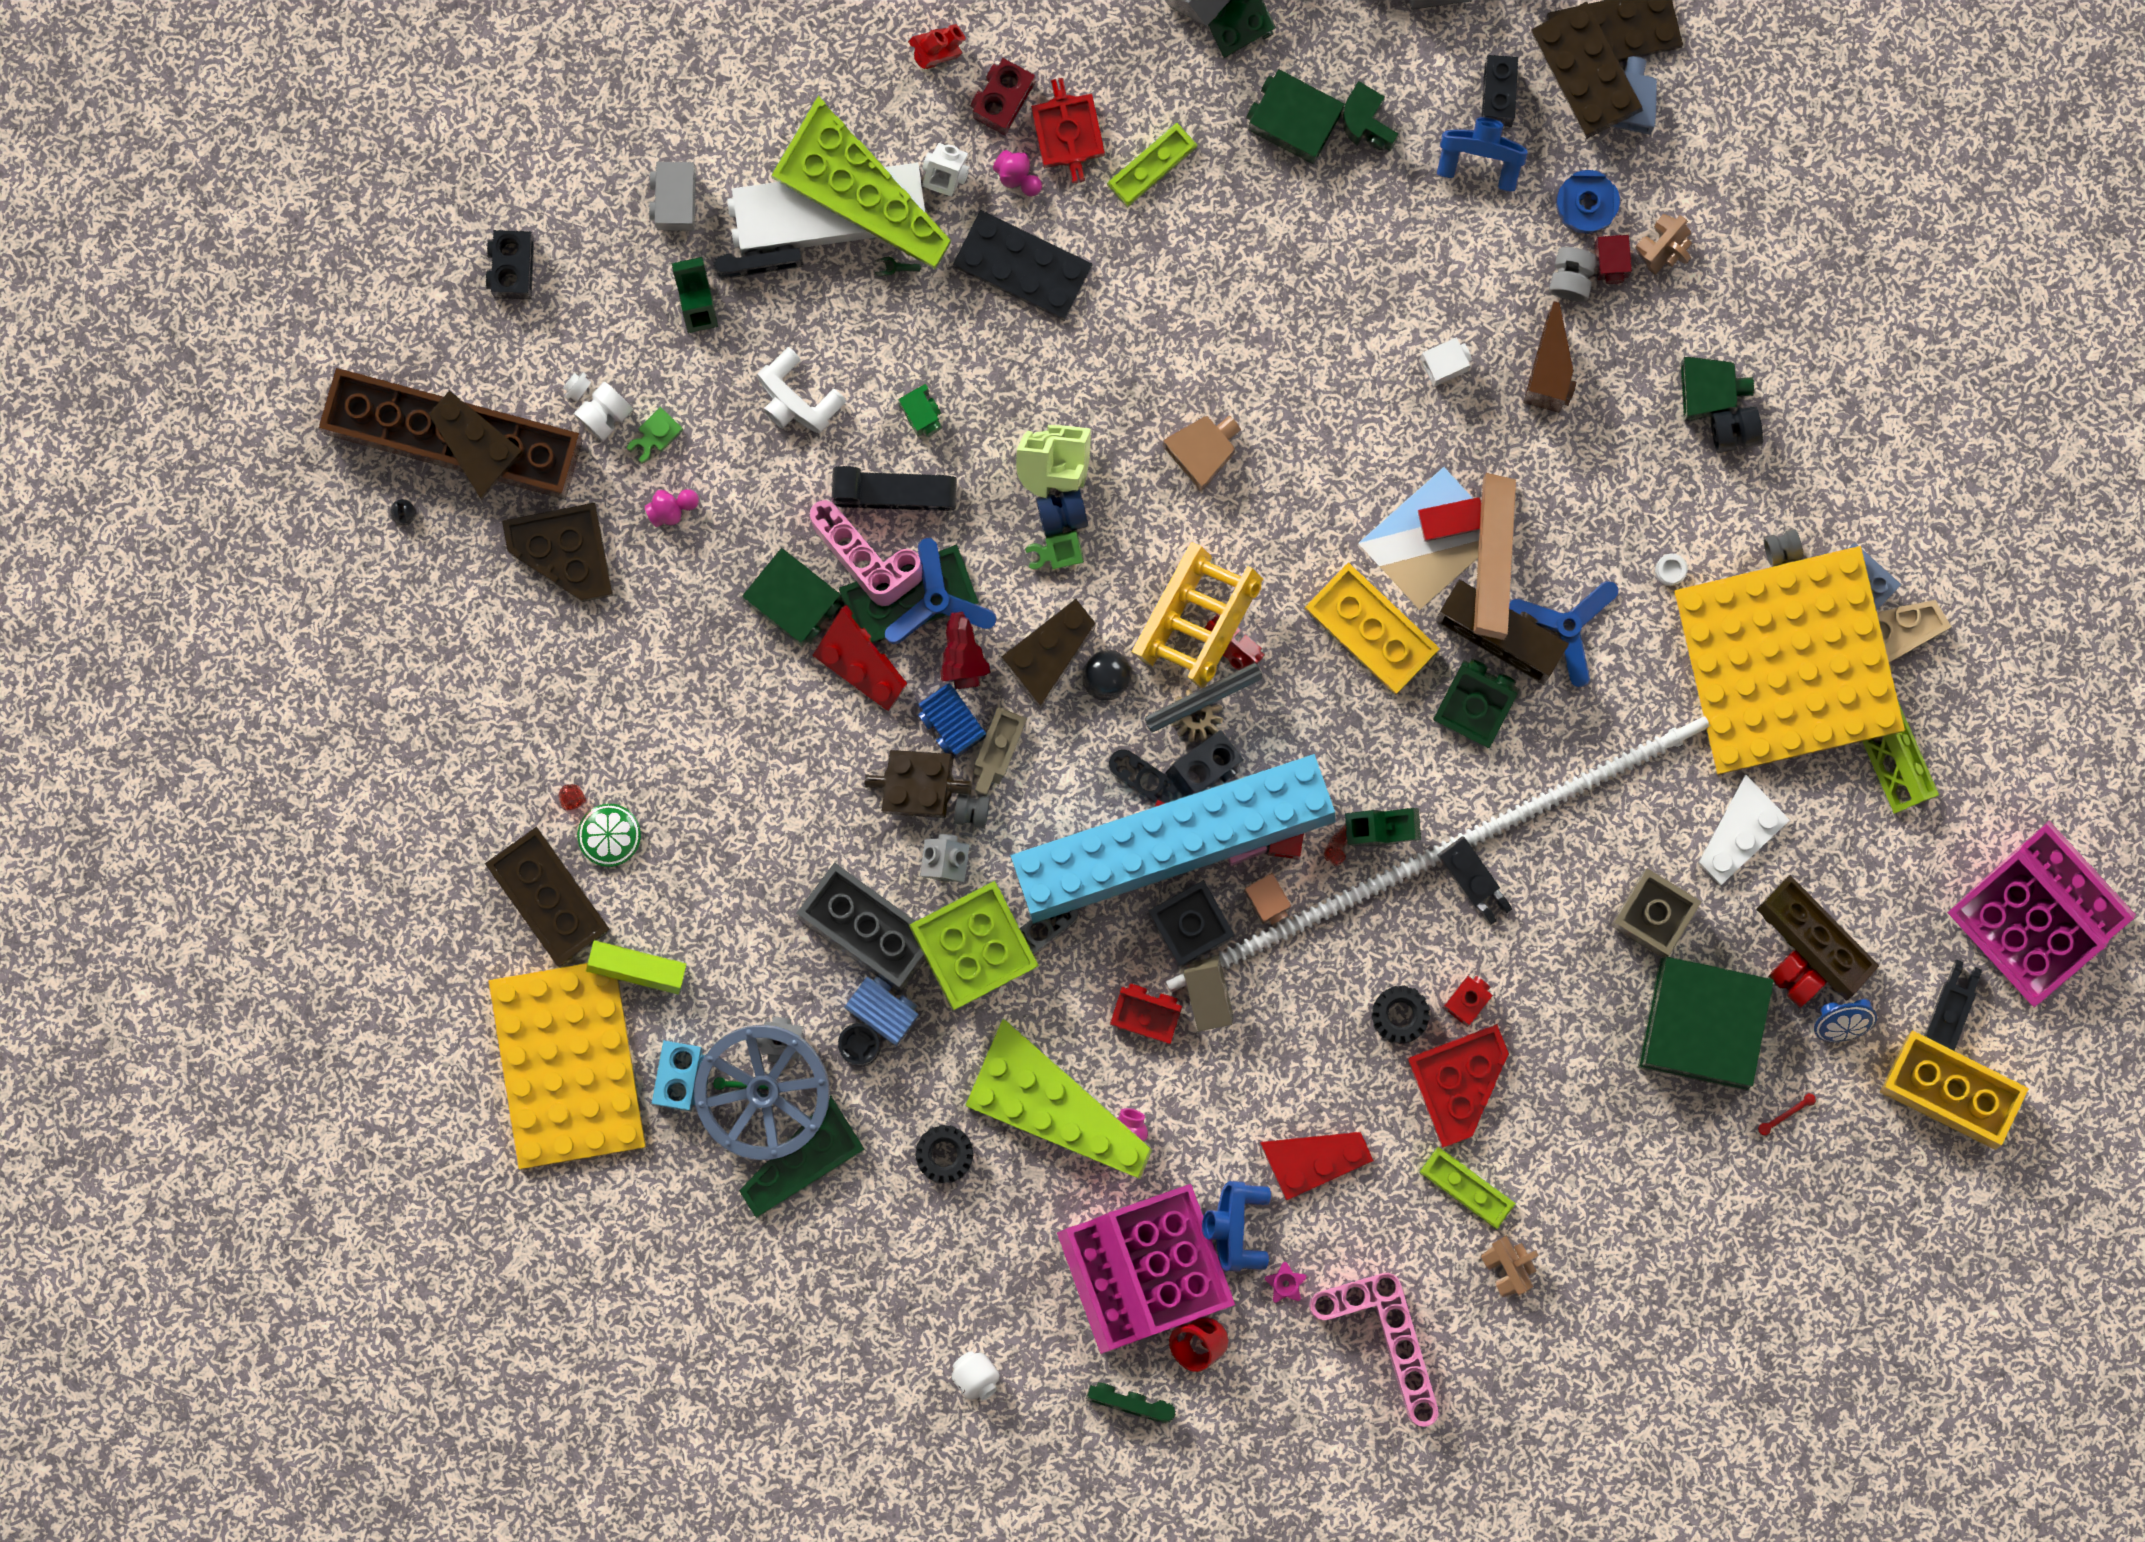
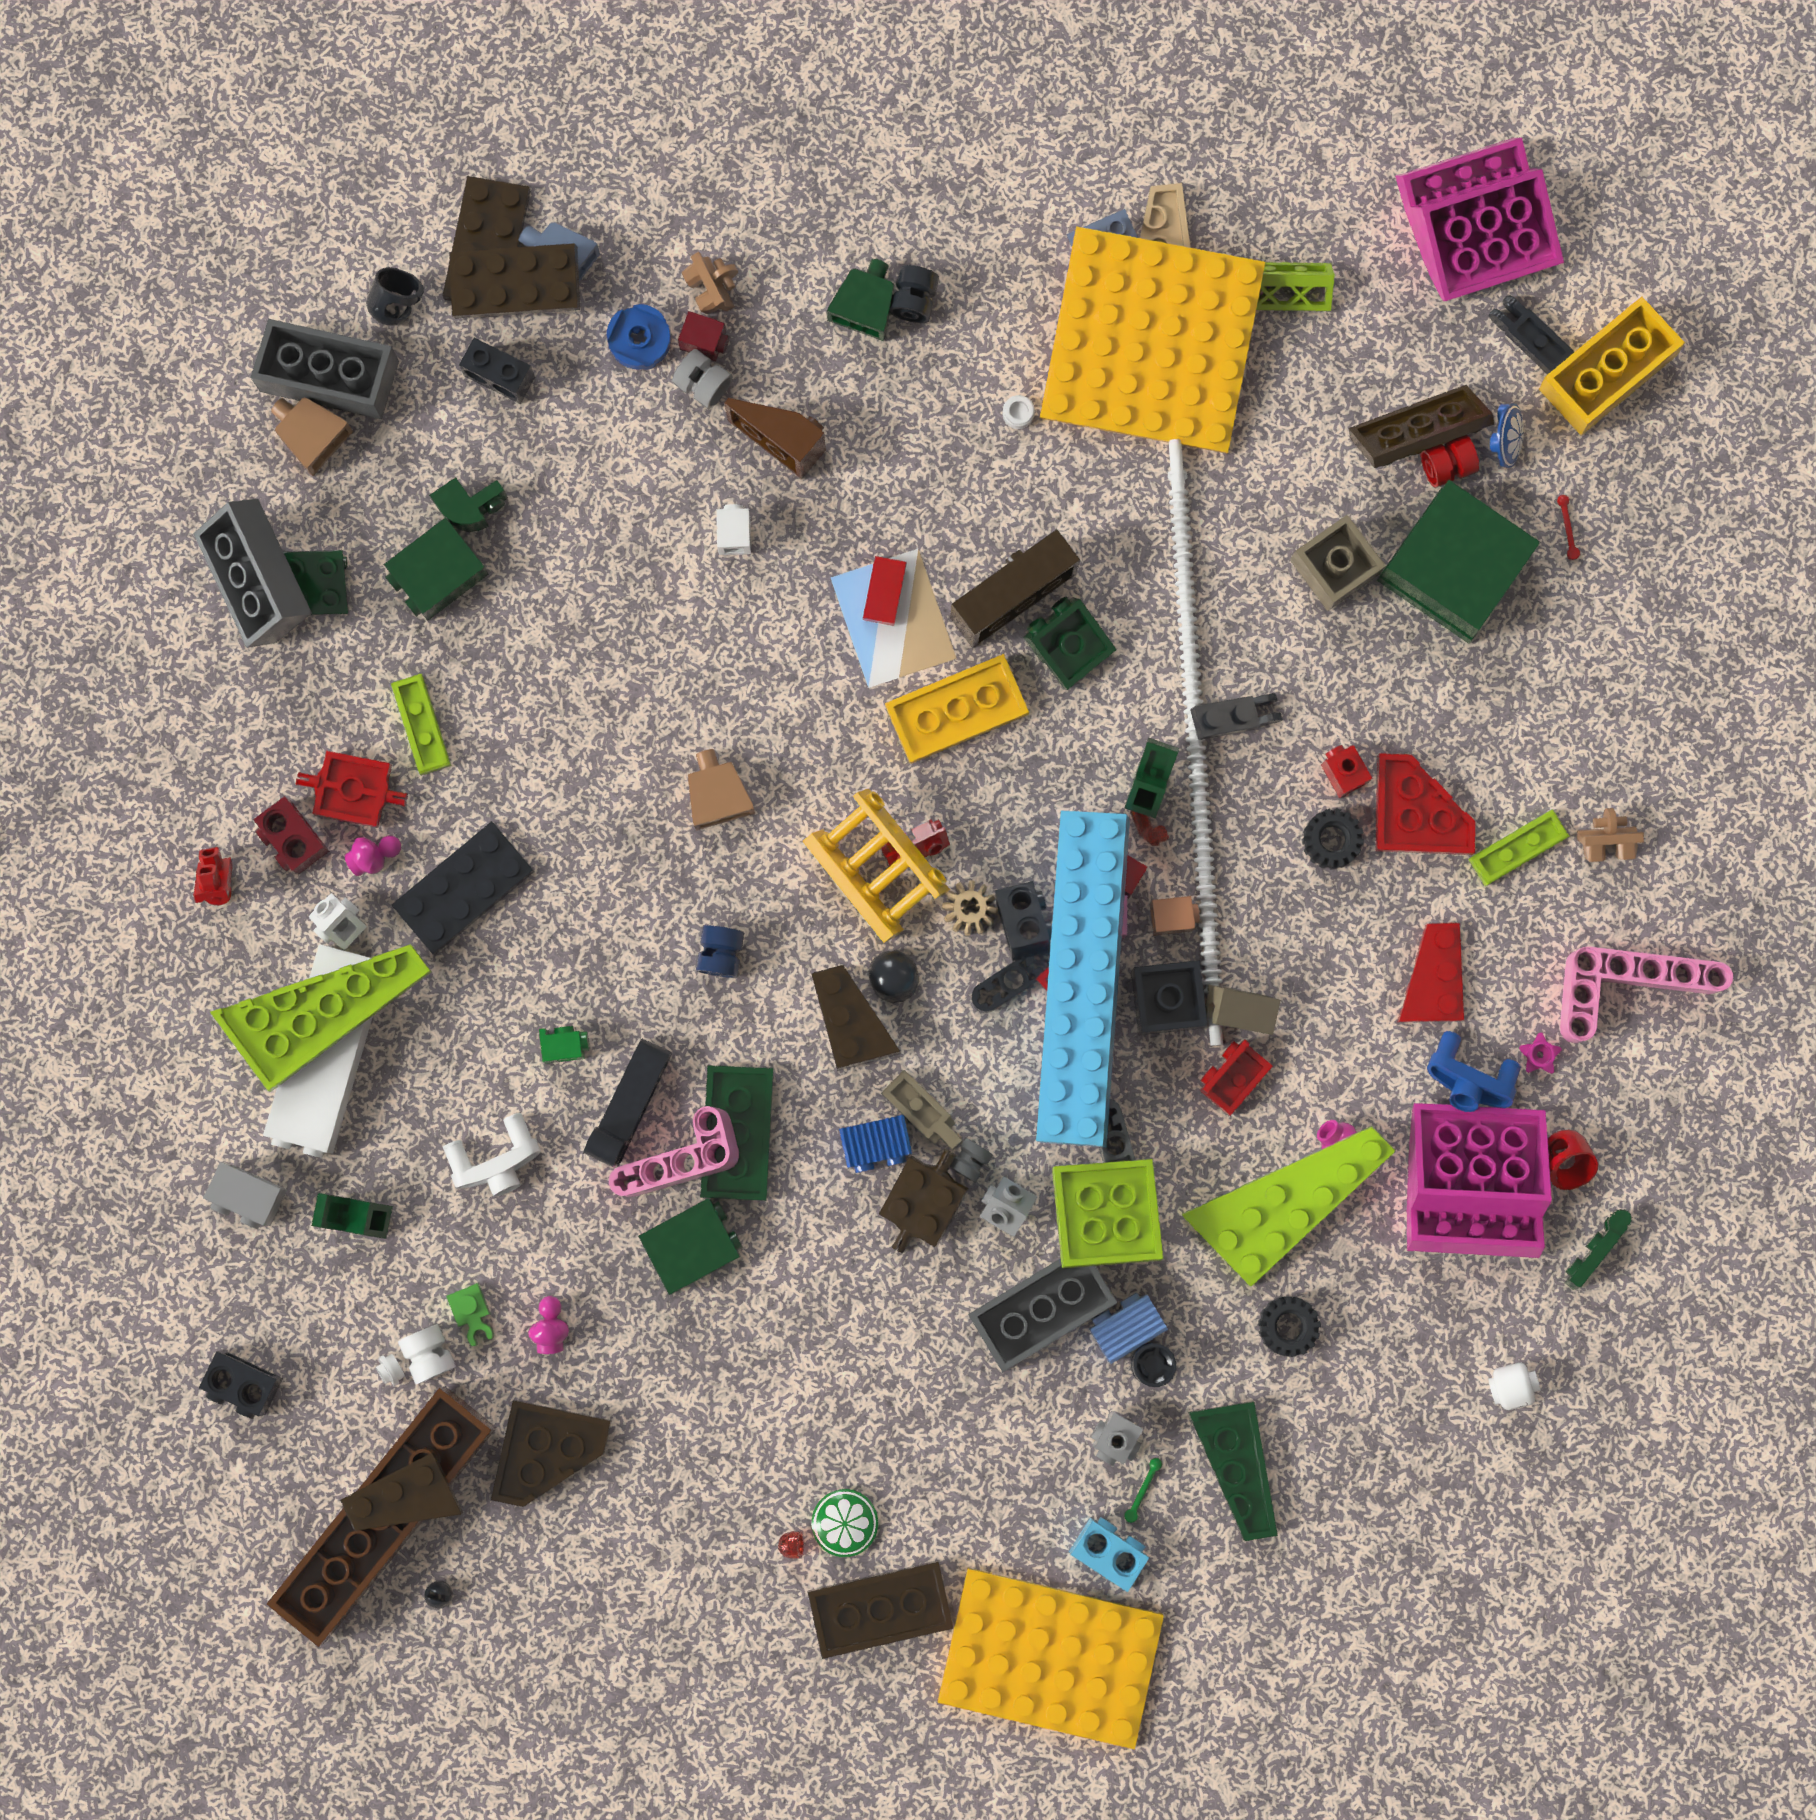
camera: 70 degrees left, 0 degrees up
(636, 967) = (986, 1551): lime tile -> none
(756, 262) = (346, 1141): black hinge -> none
(760, 1100) = (1166, 1484): sand blue wheel -> none
(855, 659) = (777, 1209): red wing -> none
(893, 266) = (409, 1012): dark green hand -> none
(933, 586) = (765, 1097): blue piece -> none
(963, 656) = (819, 1105): dark red rock -> none
(1054, 459) = (666, 937): yellowish green brick -> none
(1061, 550) = (755, 968): bright green plate -> none
(1203, 697) = (959, 893): dark grey axle -> none
(1484, 142) = (541, 403): blue connector -> none
(1495, 556) = (943, 562): medium nougat tile -> none
(1579, 615) = (1027, 514): blue piece -> none
(1743, 830) = (1291, 454): white wing -> none
(1783, 548) = (1043, 301): dark grey wheel -> none

